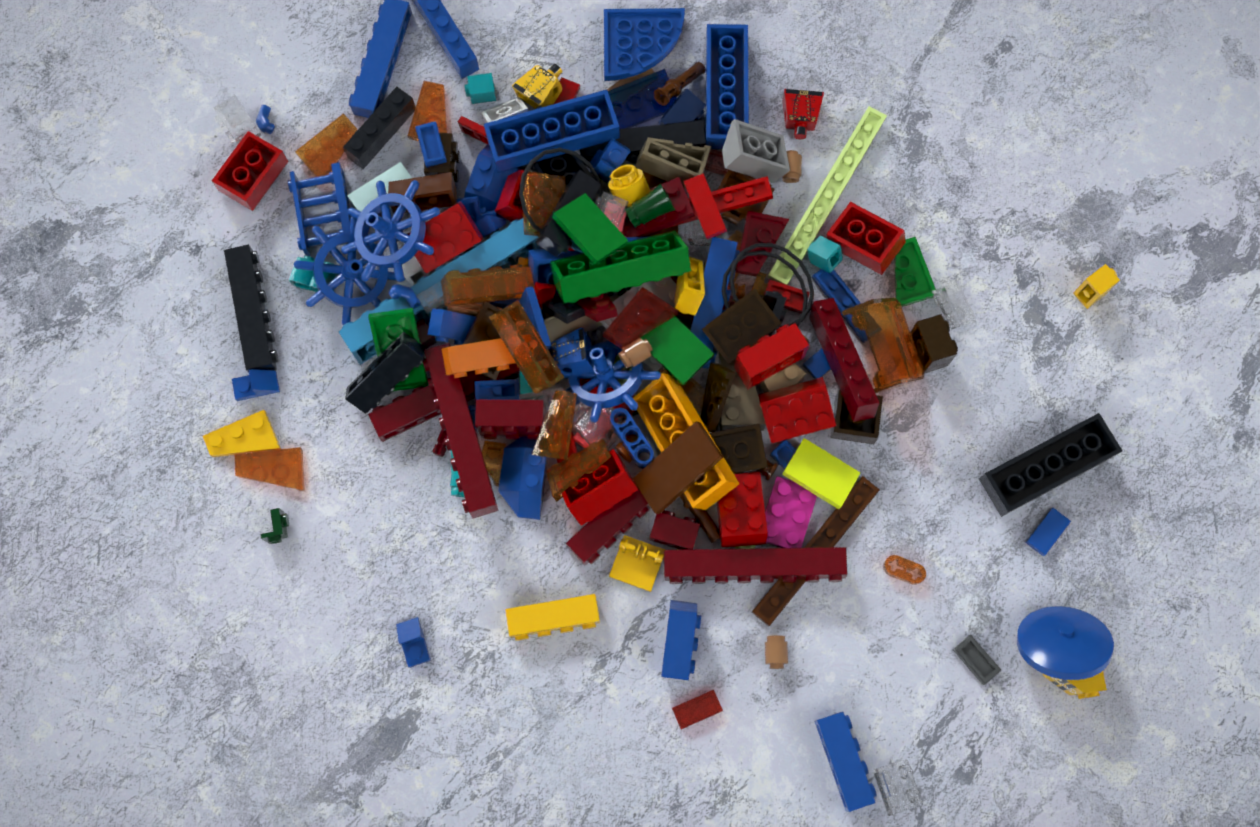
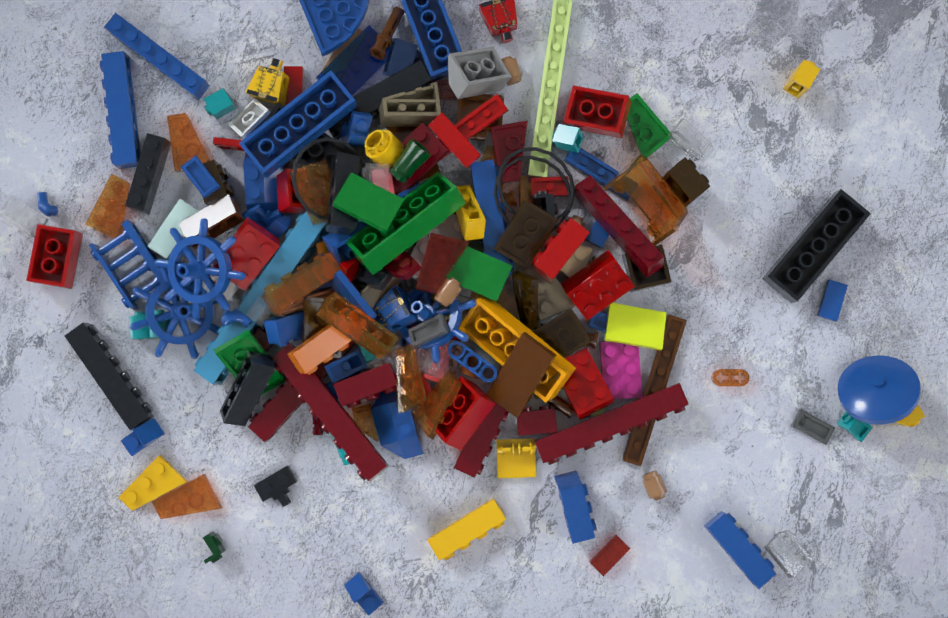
camera: 20 degrees left, 10 degrees up
(371, 490) = (276, 486): none -> black hinge
(598, 385) = (428, 330): none -> dark grey tile
(1025, 676) = (856, 428): none -> teal bracket

